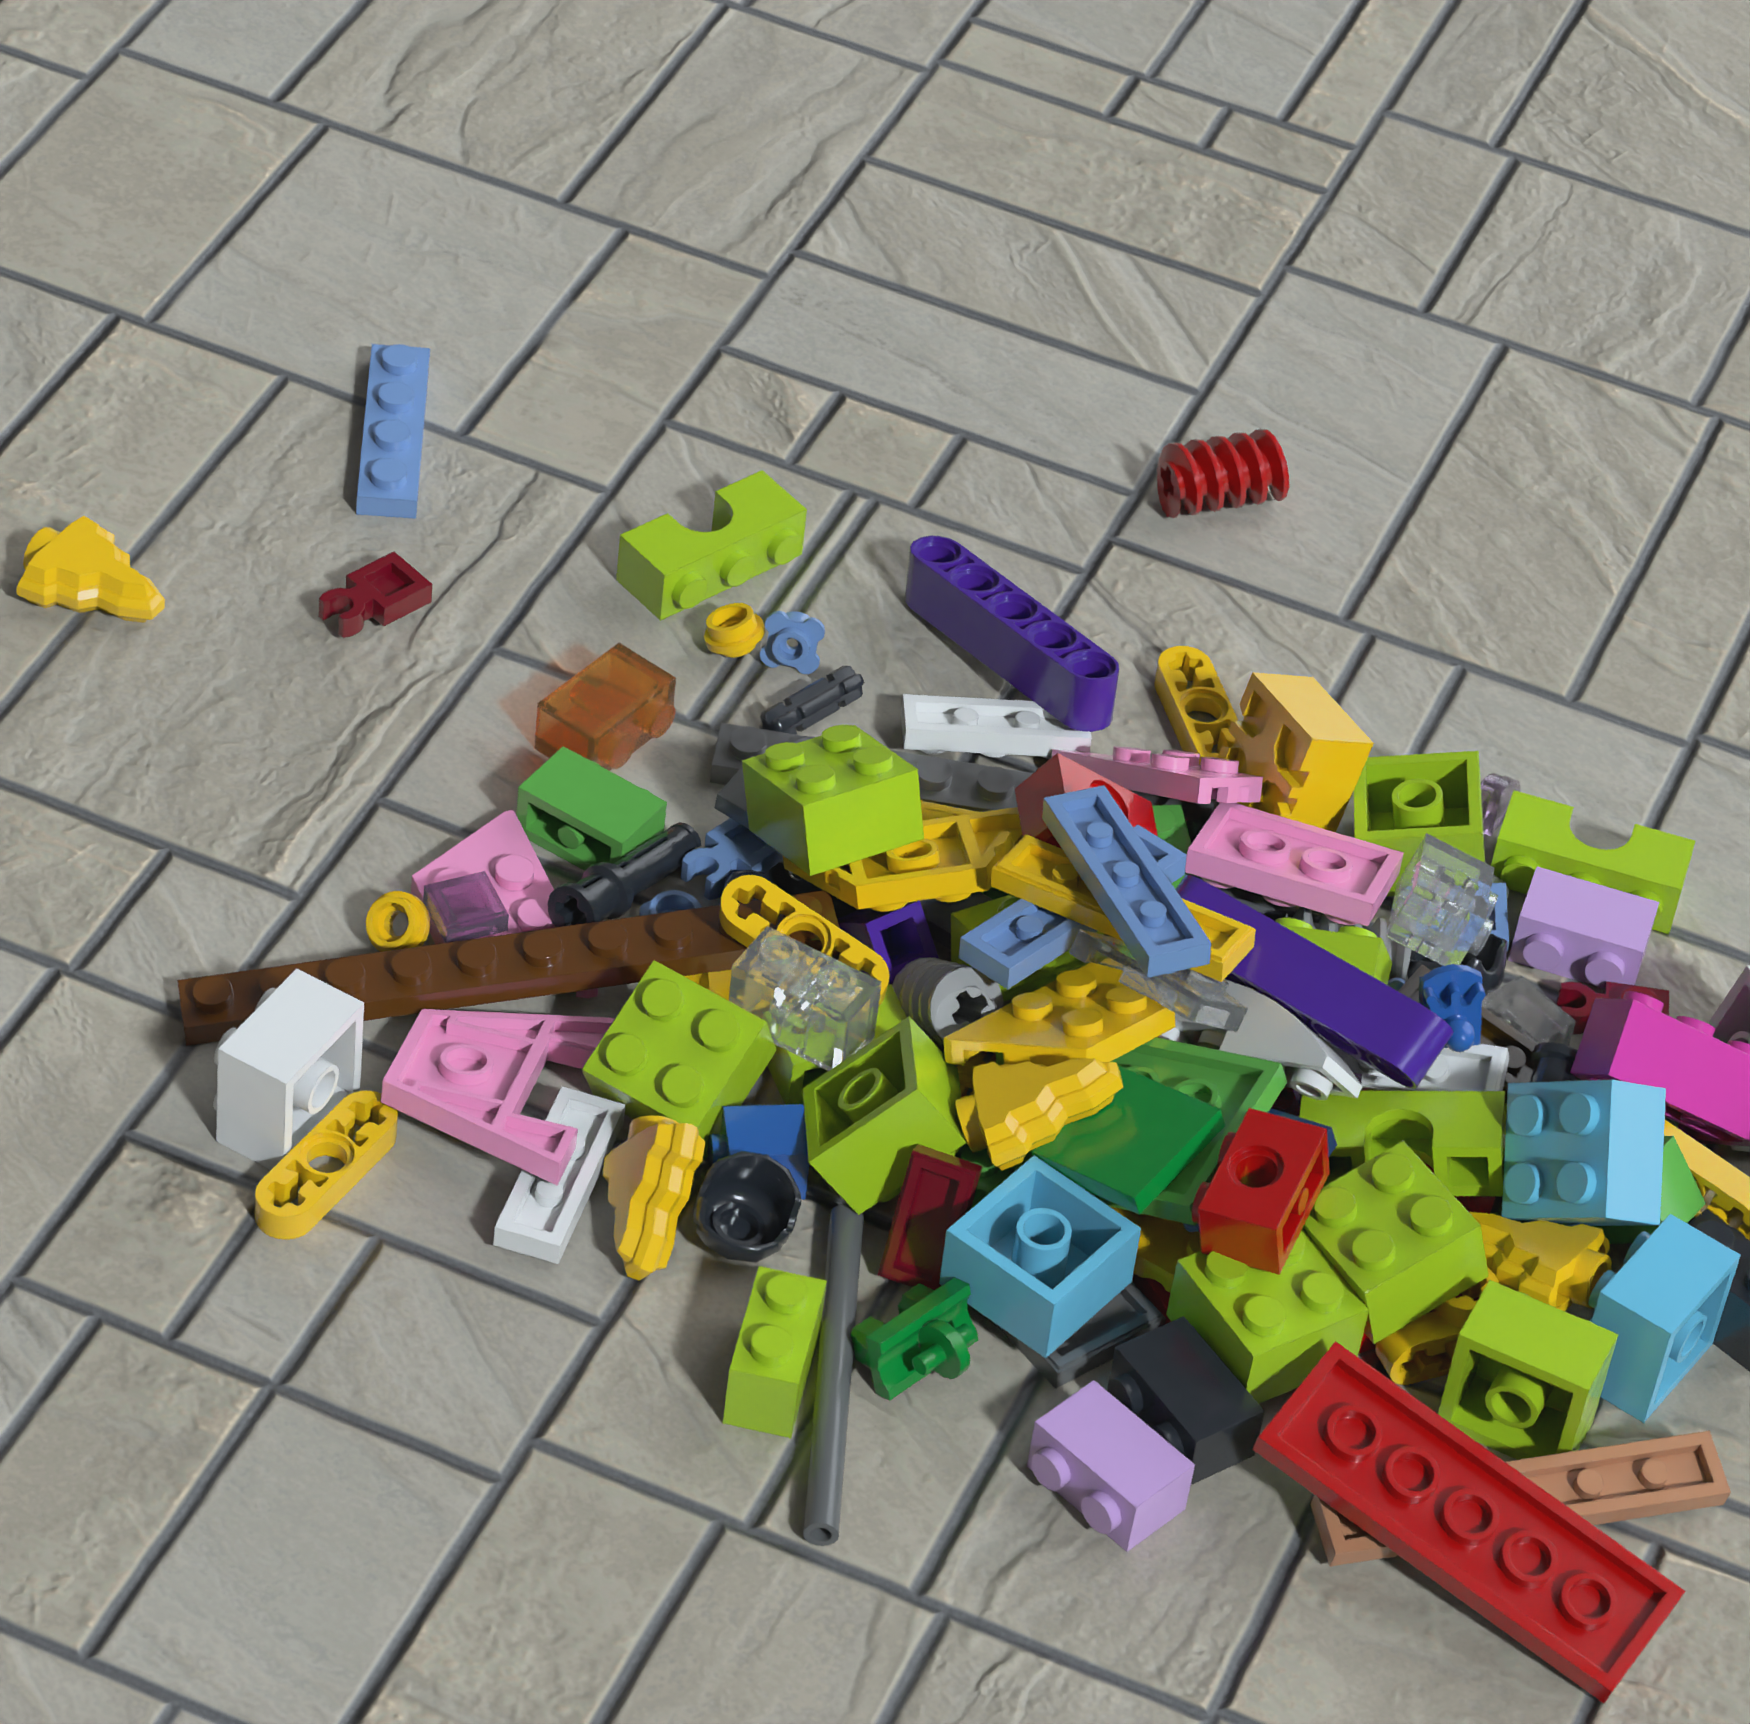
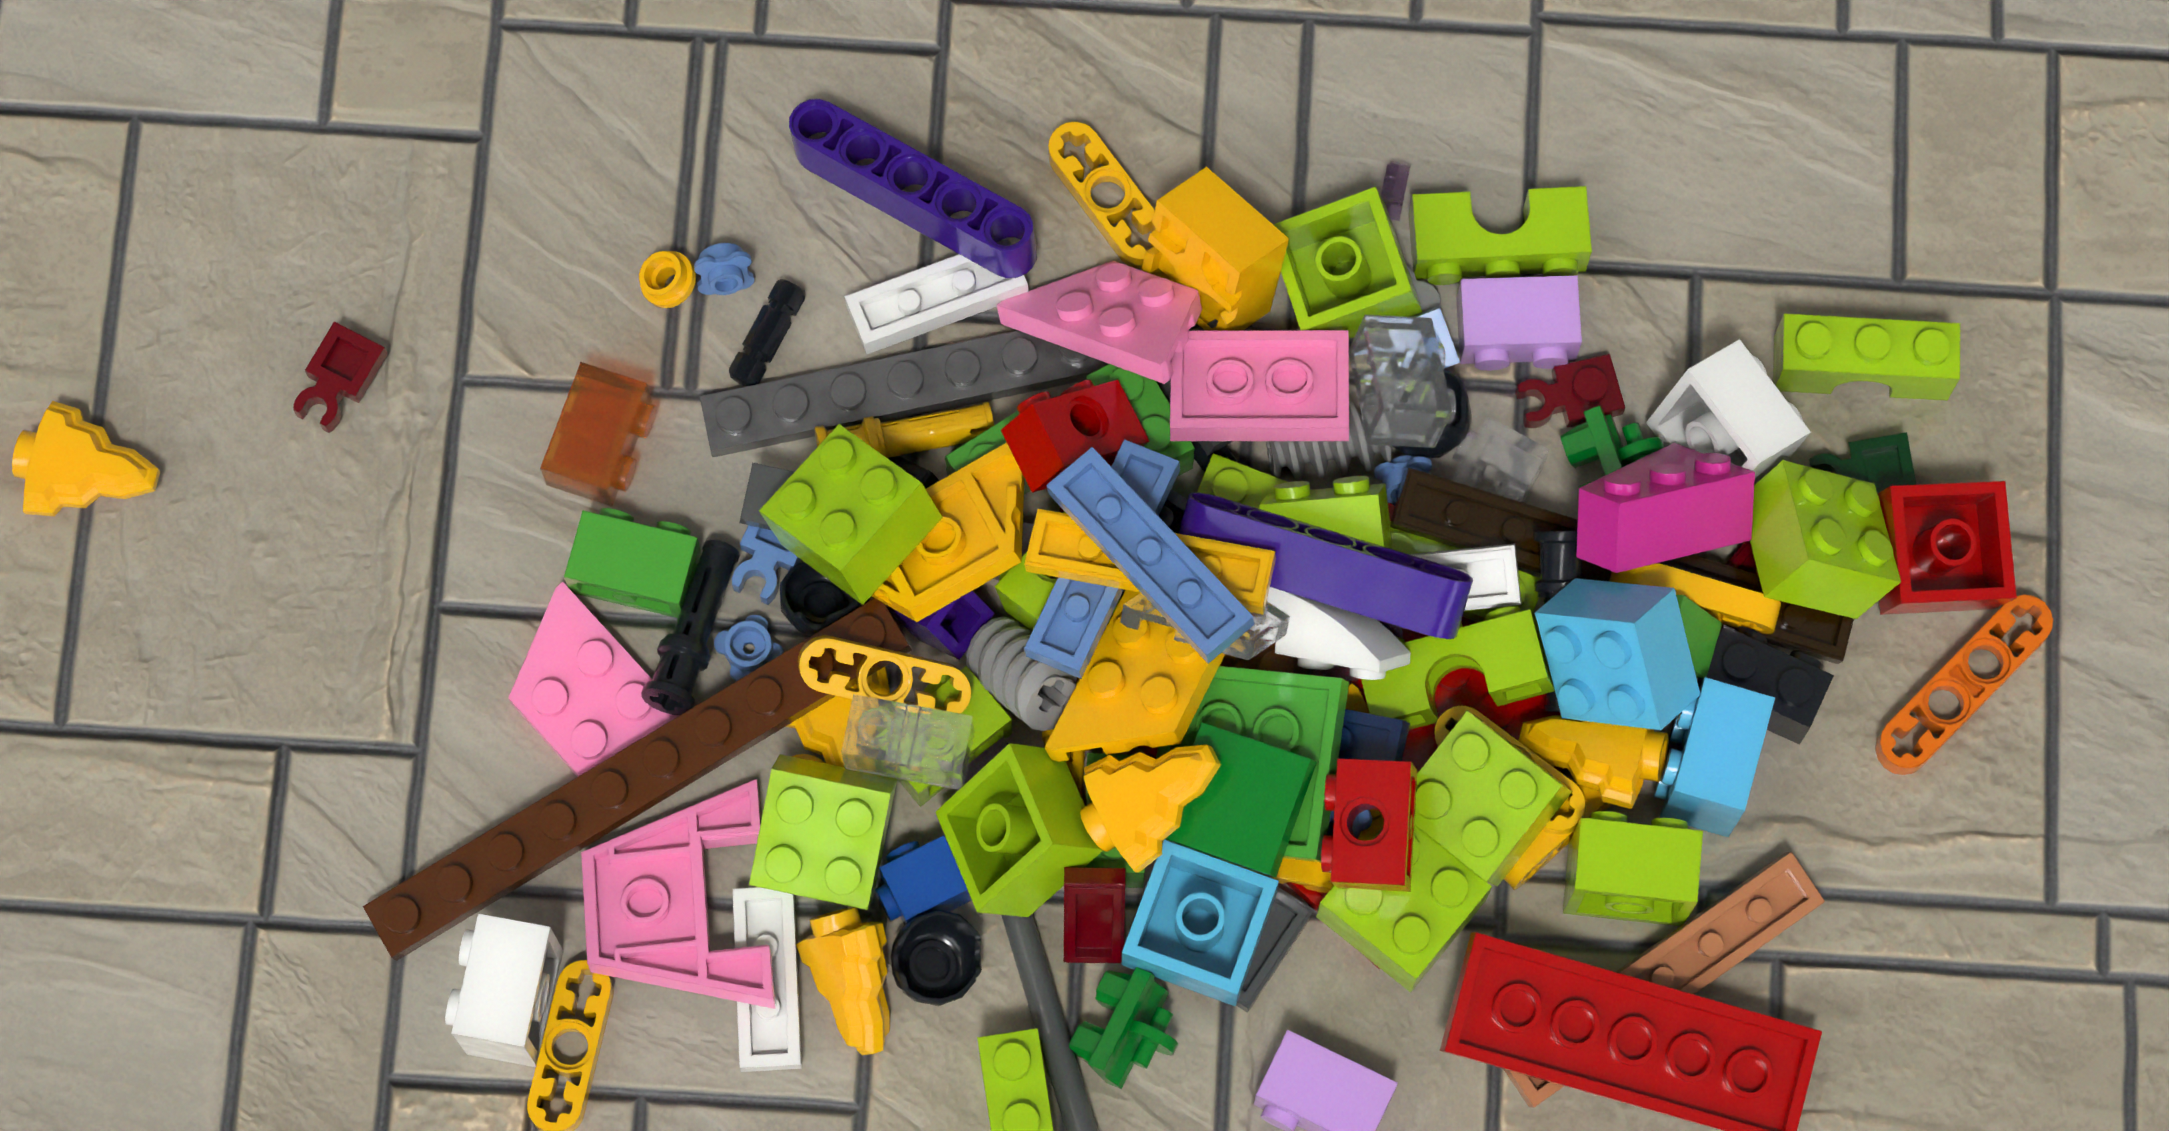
camera: 15 degrees left, 30 degrees up
(381, 917) = (515, 772): yellow plate -> none
(393, 431) = (264, 152): medium blue plate -> none
(465, 907) = (574, 730): clear purple tile -> none
(677, 568) = (589, 225): lime arch -> none
(1187, 1396) = (1362, 1008): black brick -> none
(1457, 998) = (1455, 532): blue piece -> none

